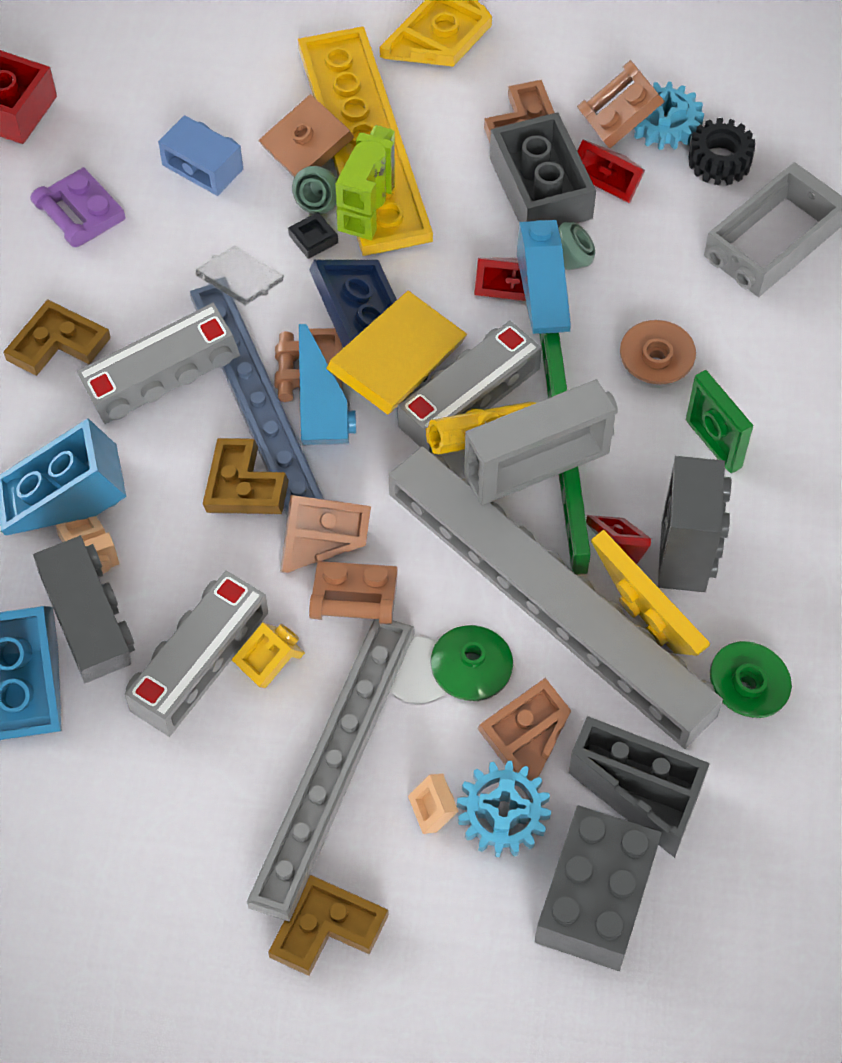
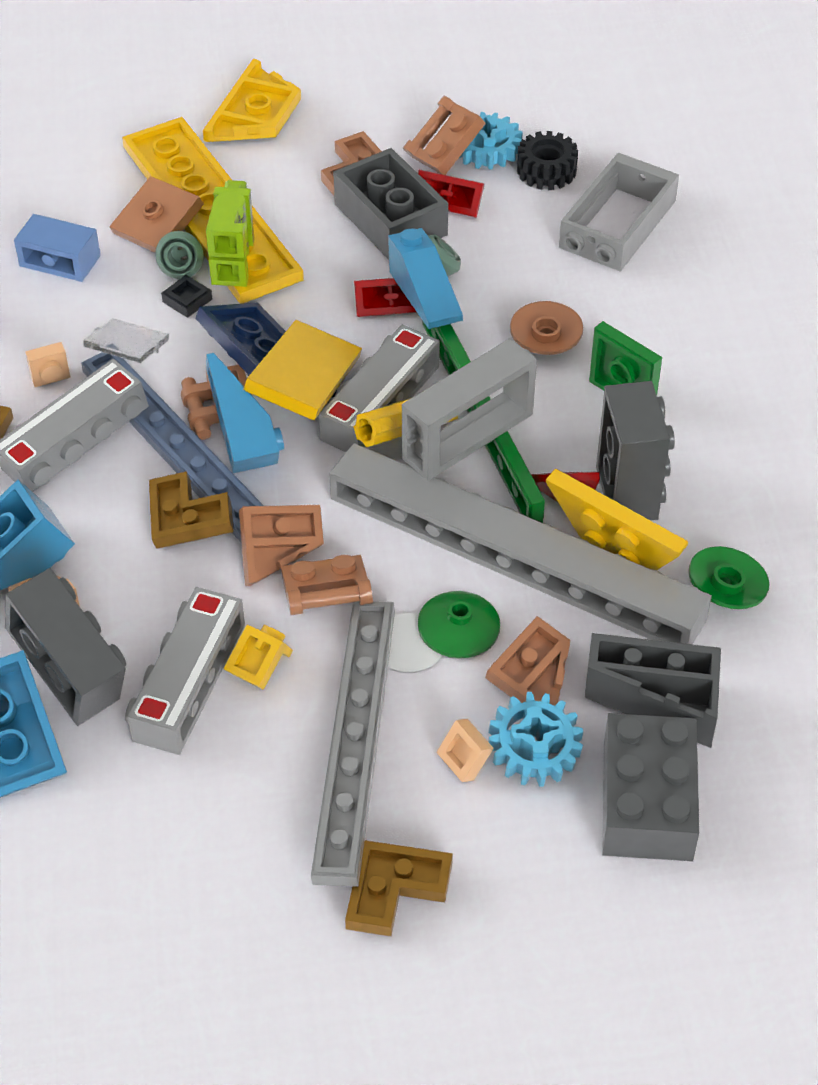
camera: 15 degrees left, 10 degrees down
(156, 287) = (48, 364): none -> light nougat plate

